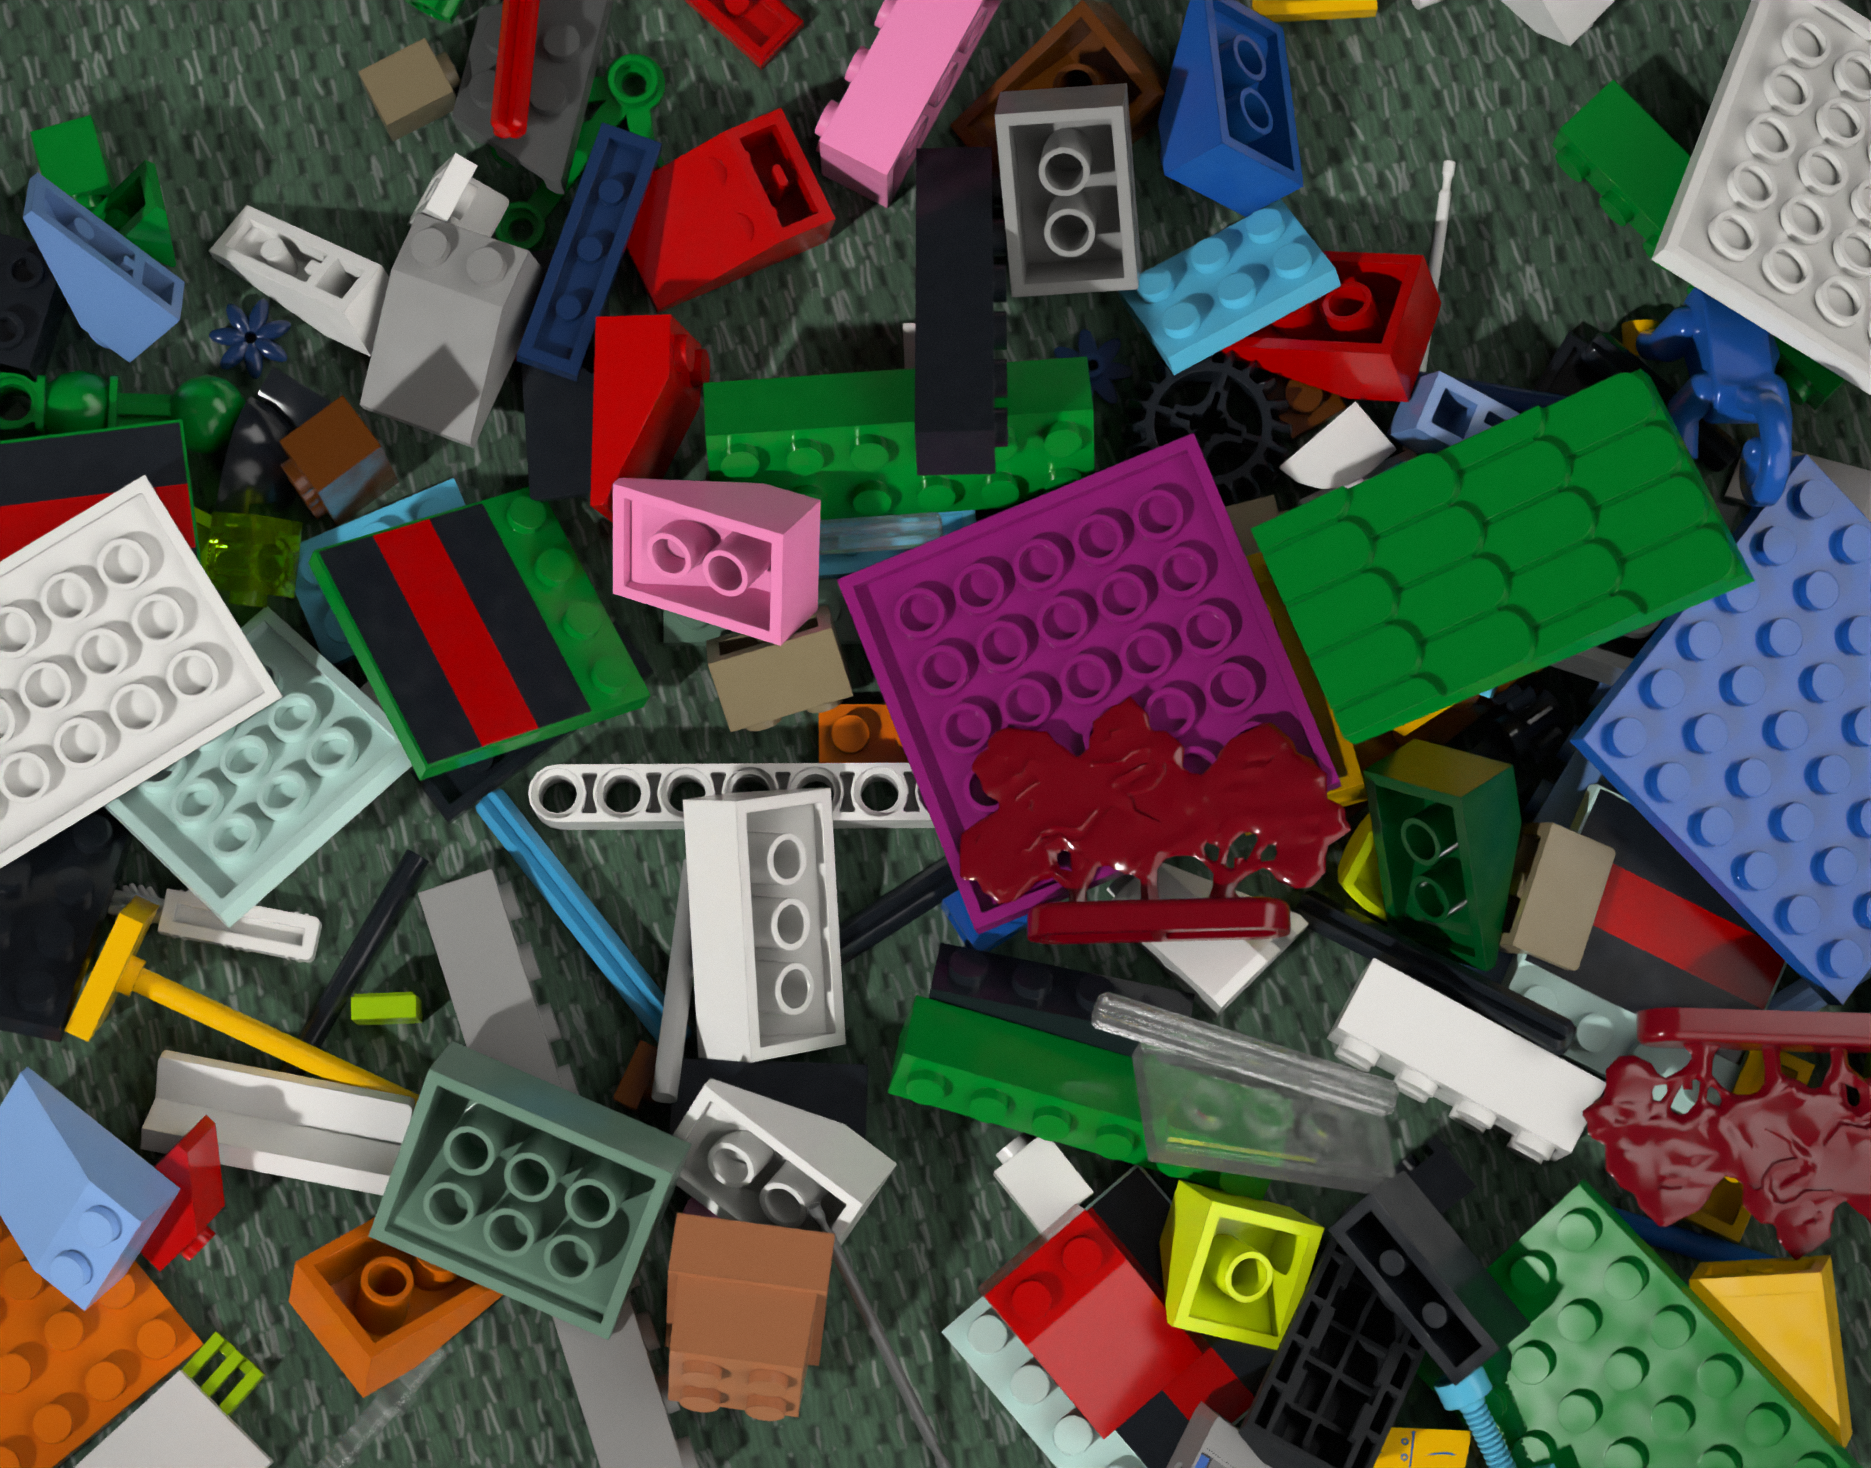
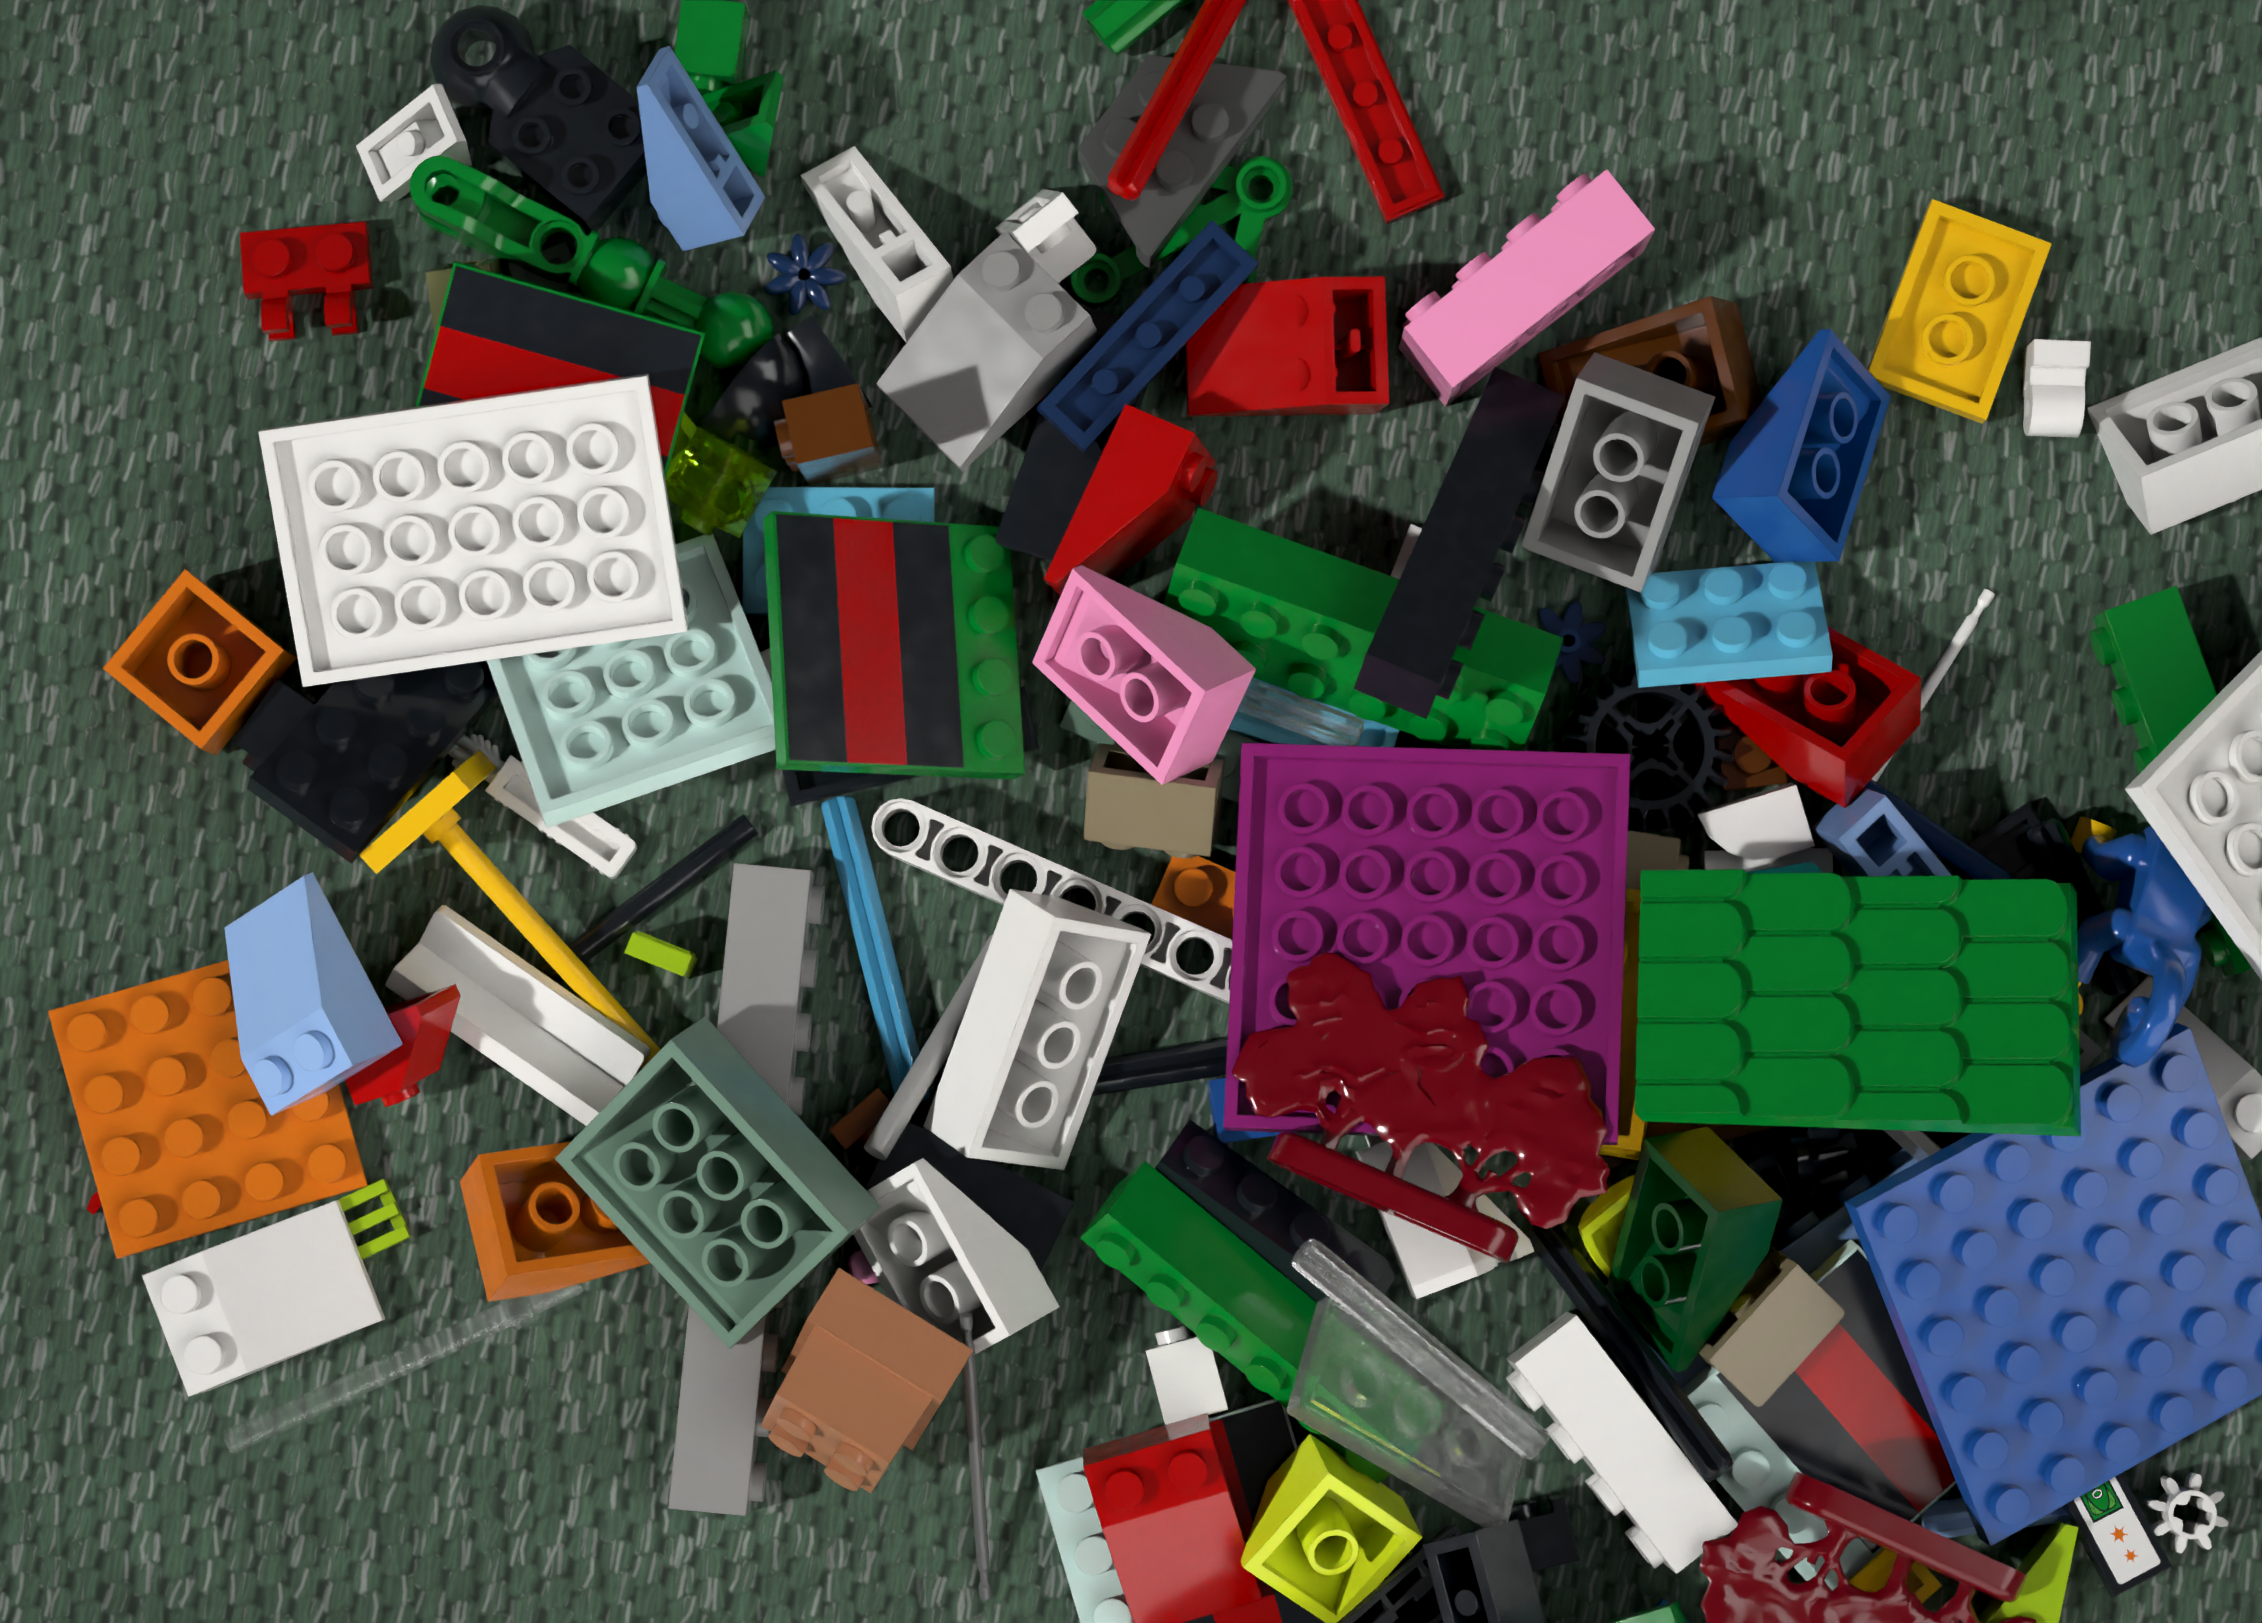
camera: 30 degrees right, 5 degrees up
(411, 88) = (1052, 103): dark tan brick -> none

